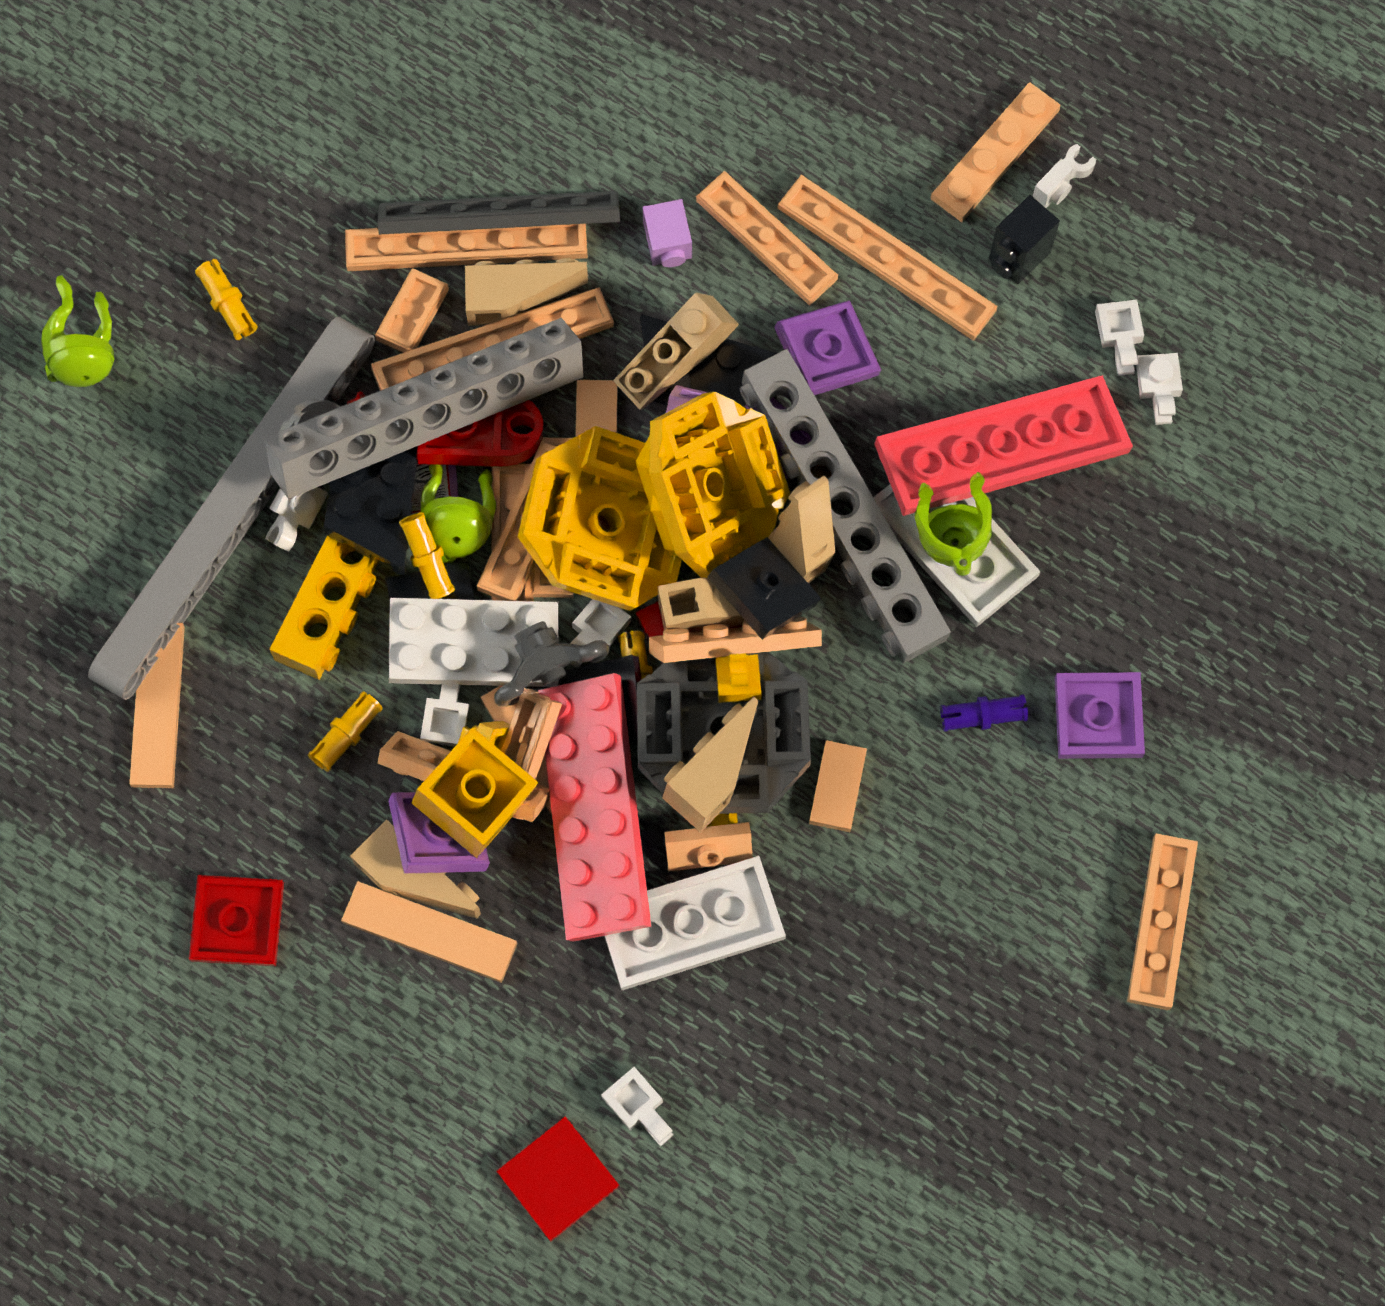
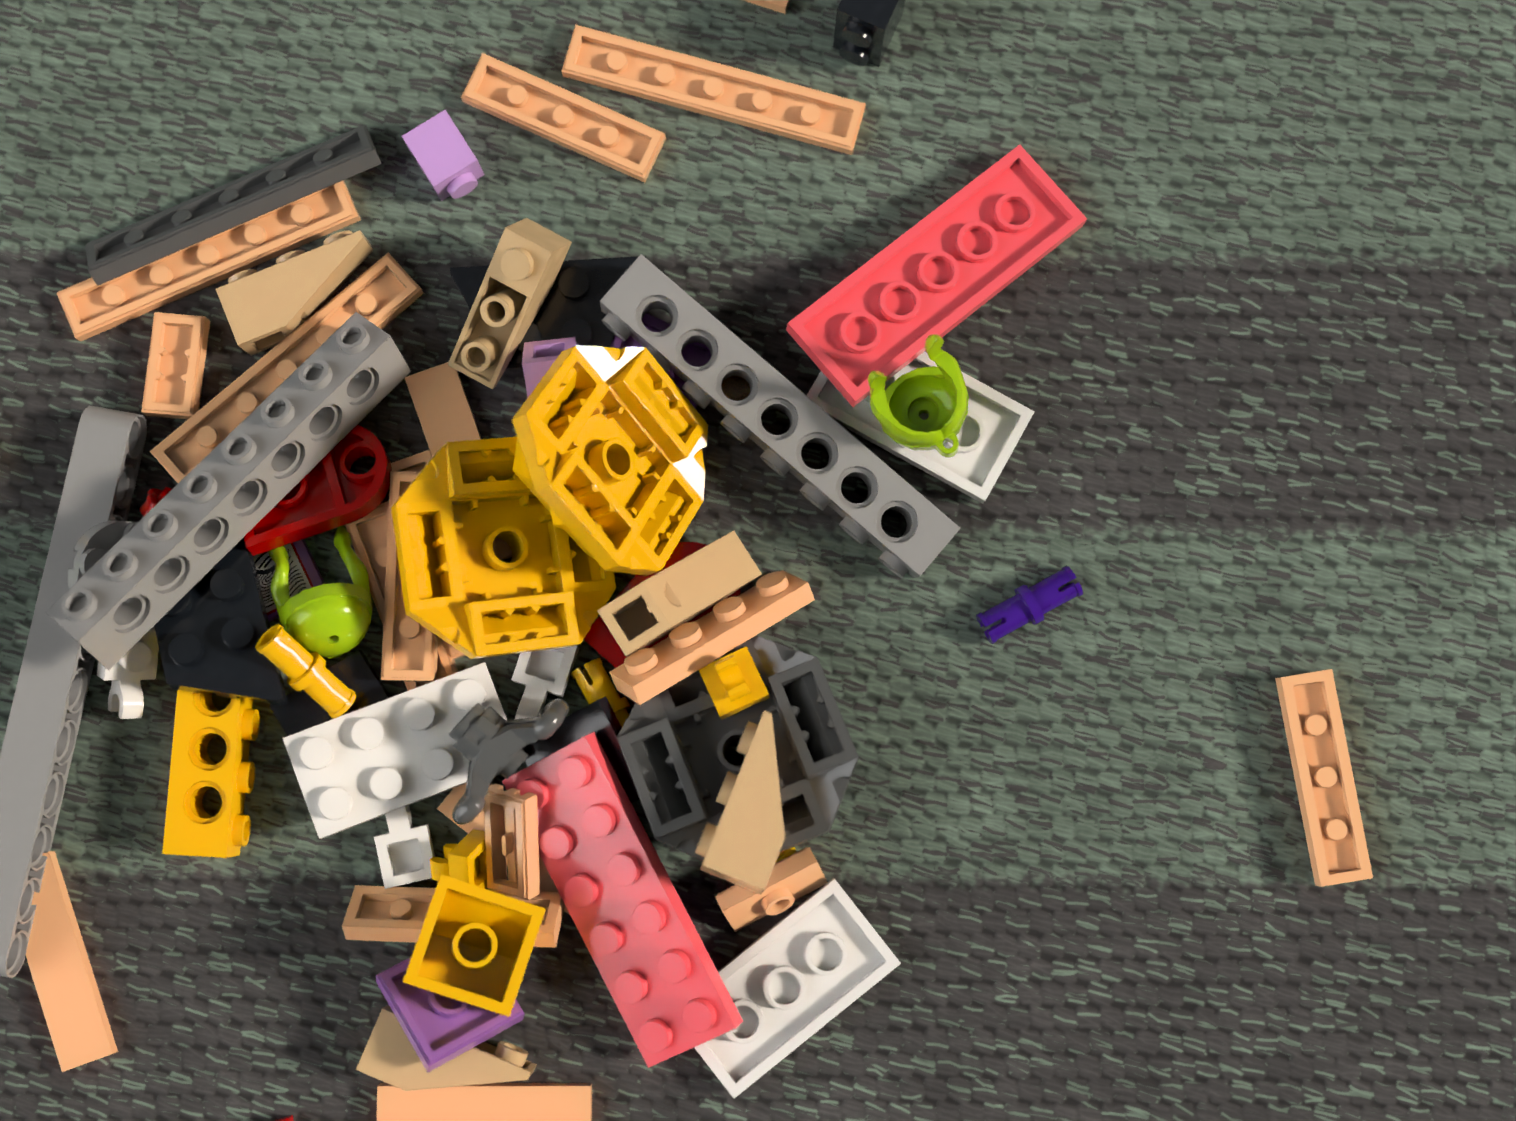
camera: 20 degrees left, 10 degrees up
(345, 731) = (293, 911): yellow pin -> none
(764, 588) = (723, 560): black plate -> none
(807, 529) = (745, 477): tan slope -> none
(829, 347) = (686, 228): medium lavender tile -> none
(837, 786) = (893, 755): light nougat tile -> none
(1099, 715) = (1163, 558): medium lavender plate -> none
(1121, 327) = (1020, 77): white plate -> none
(1161, 380) = (1087, 125): white plate -> none

